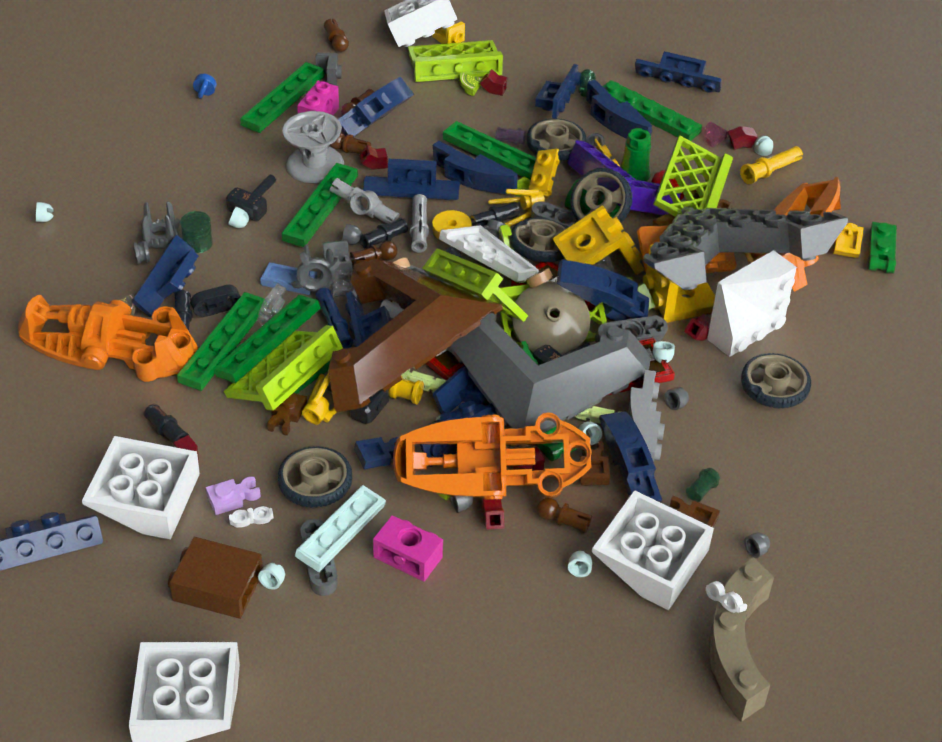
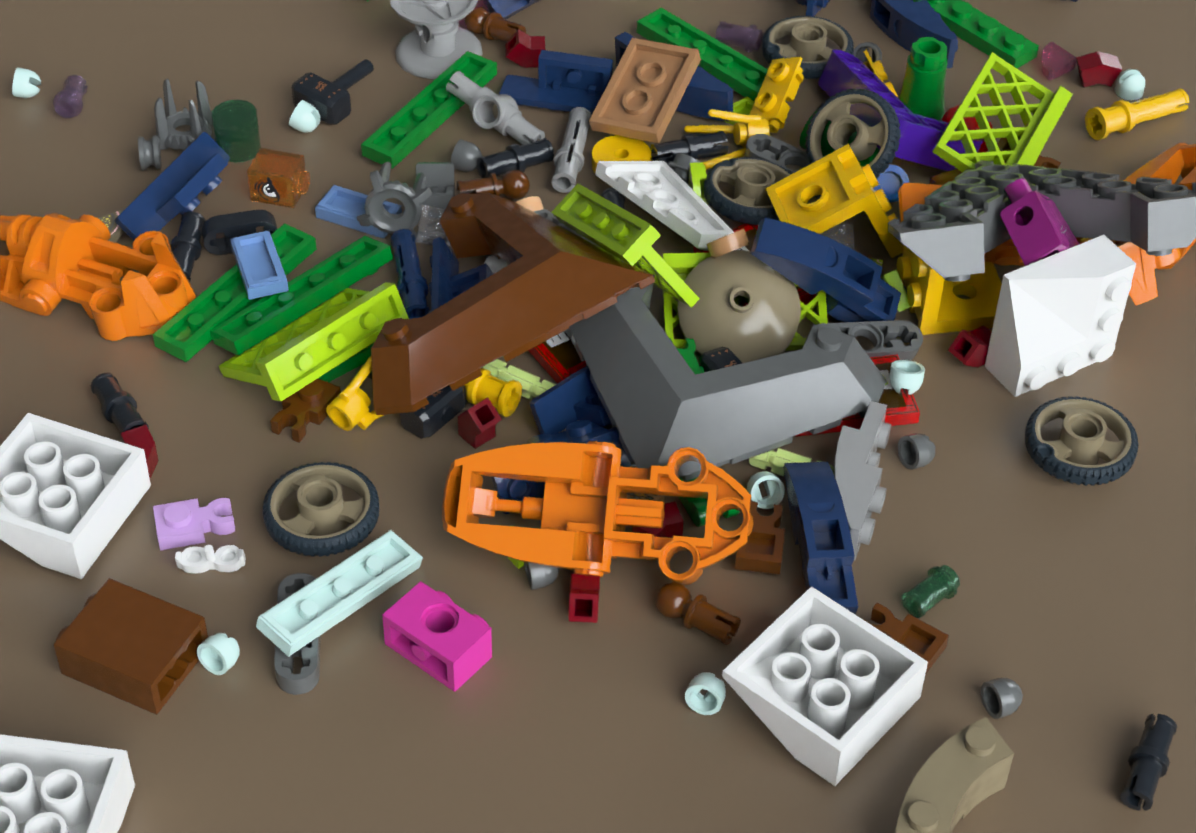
camera: 10 degrees right, 0 degrees up
(76, 222) = (69, 101): none -> clear purple pin
(232, 261) = (278, 178): none -> clear orange brick
(236, 321) = (259, 265): none -> medium blue tile
(272, 304) = (316, 243): clear plate -> none
(375, 452) = (419, 482): dark blue plate -> none
(401, 410) = (478, 423): none -> dark red piece
(461, 179) = (645, 90): none -> medium nougat plate
(630, 225) = (891, 181): none -> blue tile
(730, 600) = (930, 784): white piece -> none
(737, 254) = (1035, 223): none -> magenta torso
(850, 572) = (1148, 762): none -> black pin

